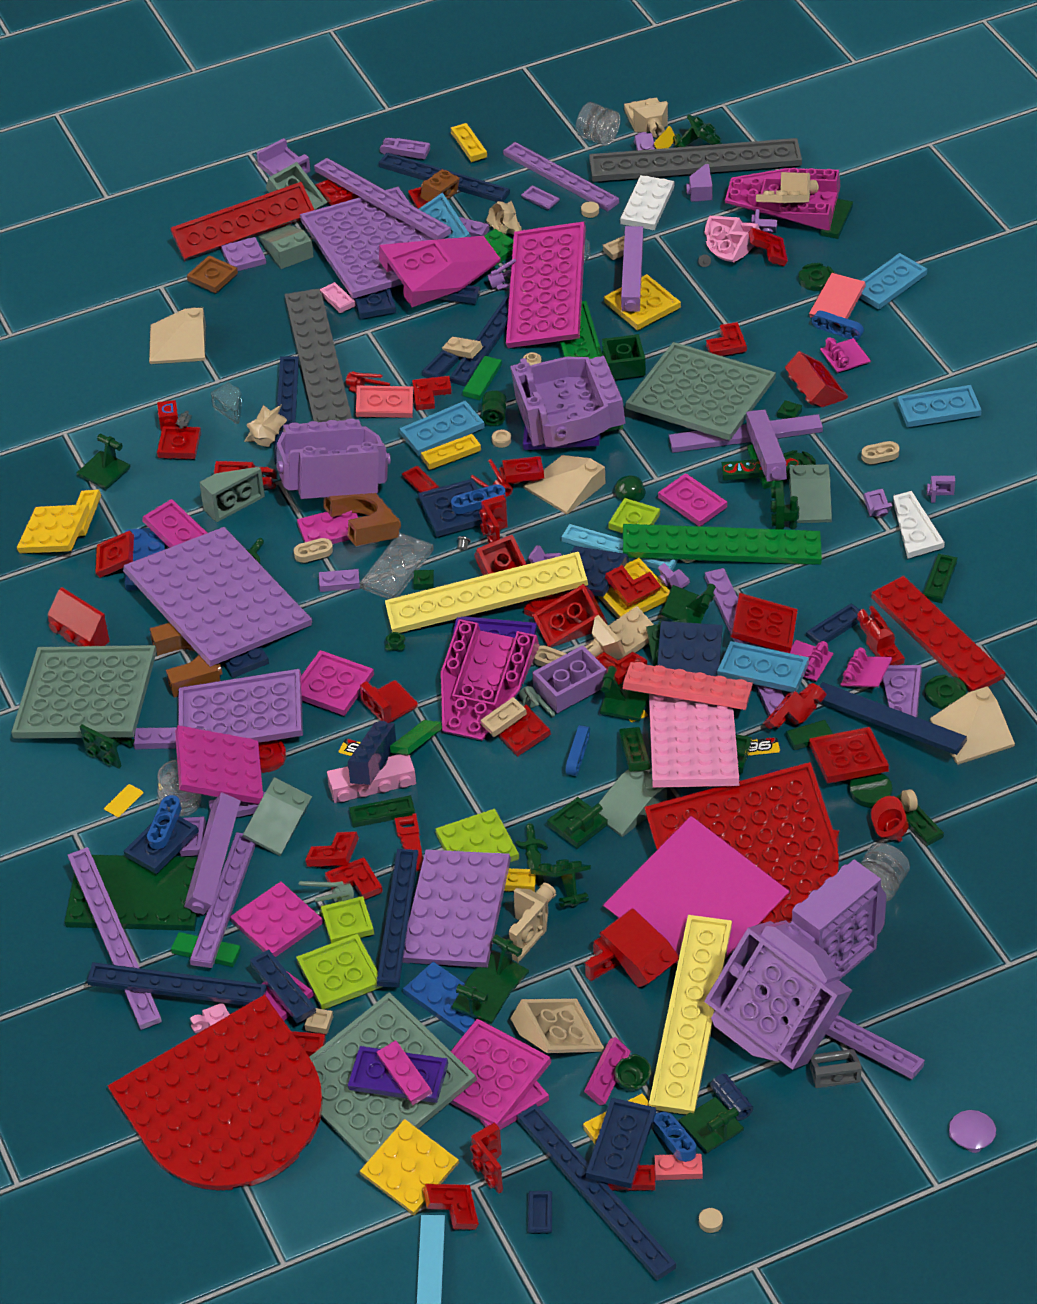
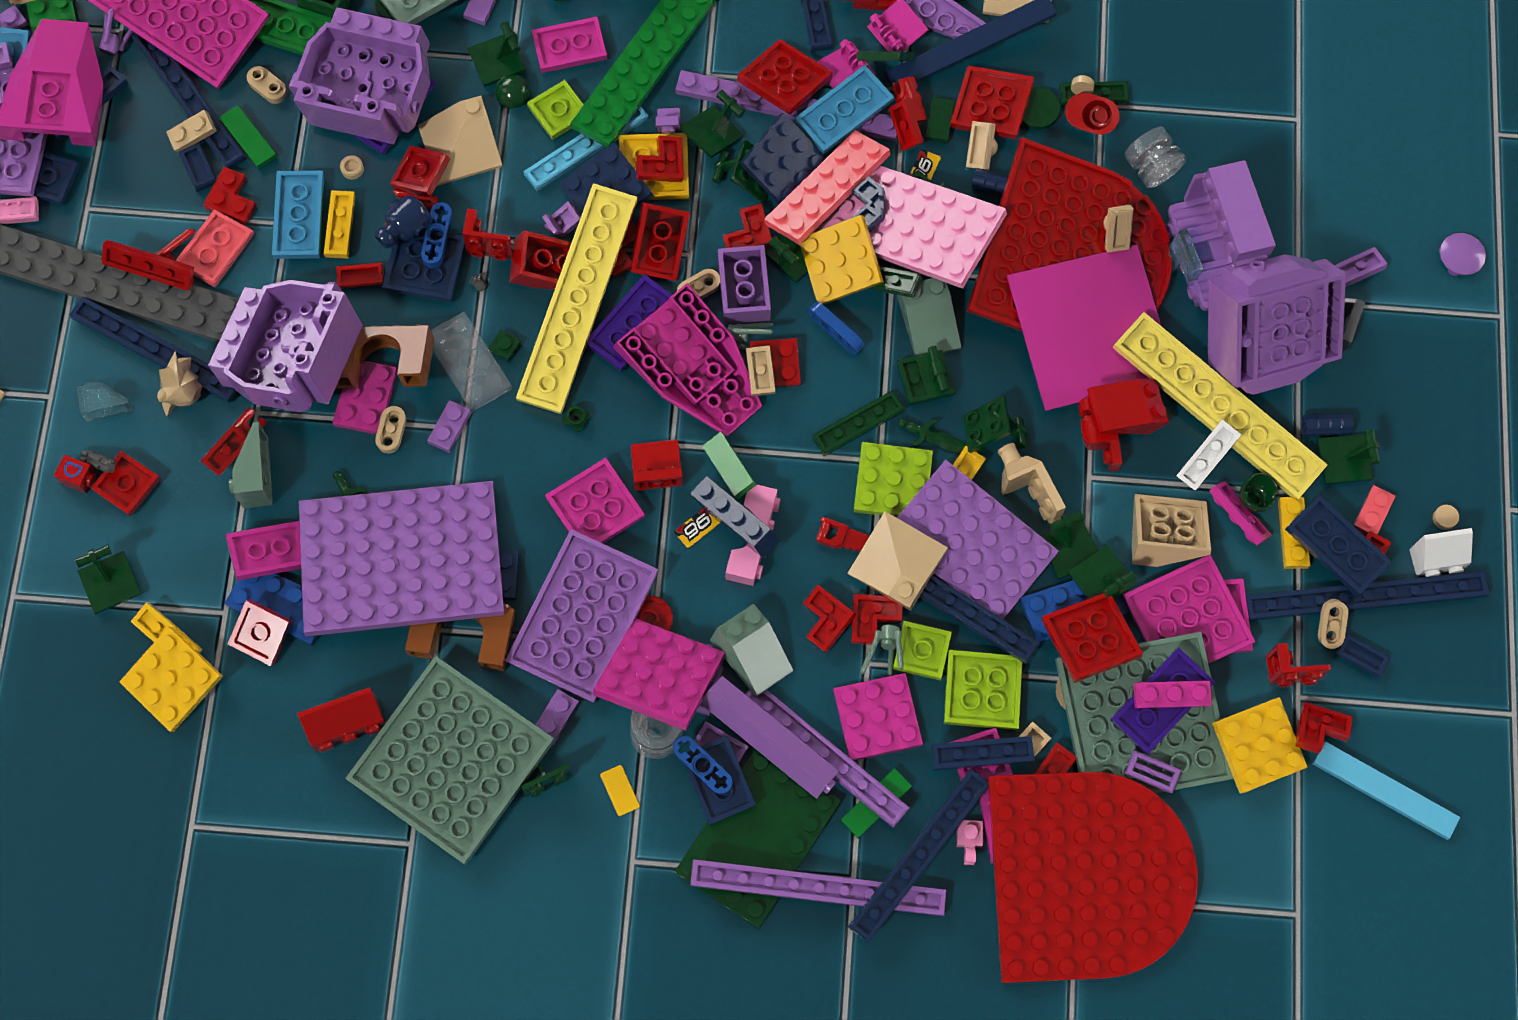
camera: 65 degrees left, 25 degrees up
(339, 1118) = (1133, 764): none -> medium lavender tile
(341, 371) = (147, 265): none -> red plate
(381, 811) = (796, 546): dark green tile -> none
(404, 866) = (897, 560): none -> tan slope
(420, 1002) = (1091, 637): none -> red plate
(472, 473) = (404, 221): none -> dark blue piece
(493, 408) = (308, 150): dark green wheel -> none
(510, 802) = (858, 423): none -> dark green tile
(551, 1172) = (1333, 622): none -> tan plate
(621, 636) = (712, 206): tan plate -> none
(630, 719) = (841, 260): none -> yellow plate
(640, 1023) = (1208, 455): none -> white plate
(650, 467) = (497, 56): none -> dark green plate
(669, 1221) = (1442, 553): none -> white slope
(688, 1151) = (1365, 502): blue beam -> none
(696, 711) = (873, 197): none -> tile
(784, 861) = (1118, 228): none -> tan tile
(810, 755) = (981, 145): none -> tan tile
(828, 668) = (886, 56): none -> dark green tile

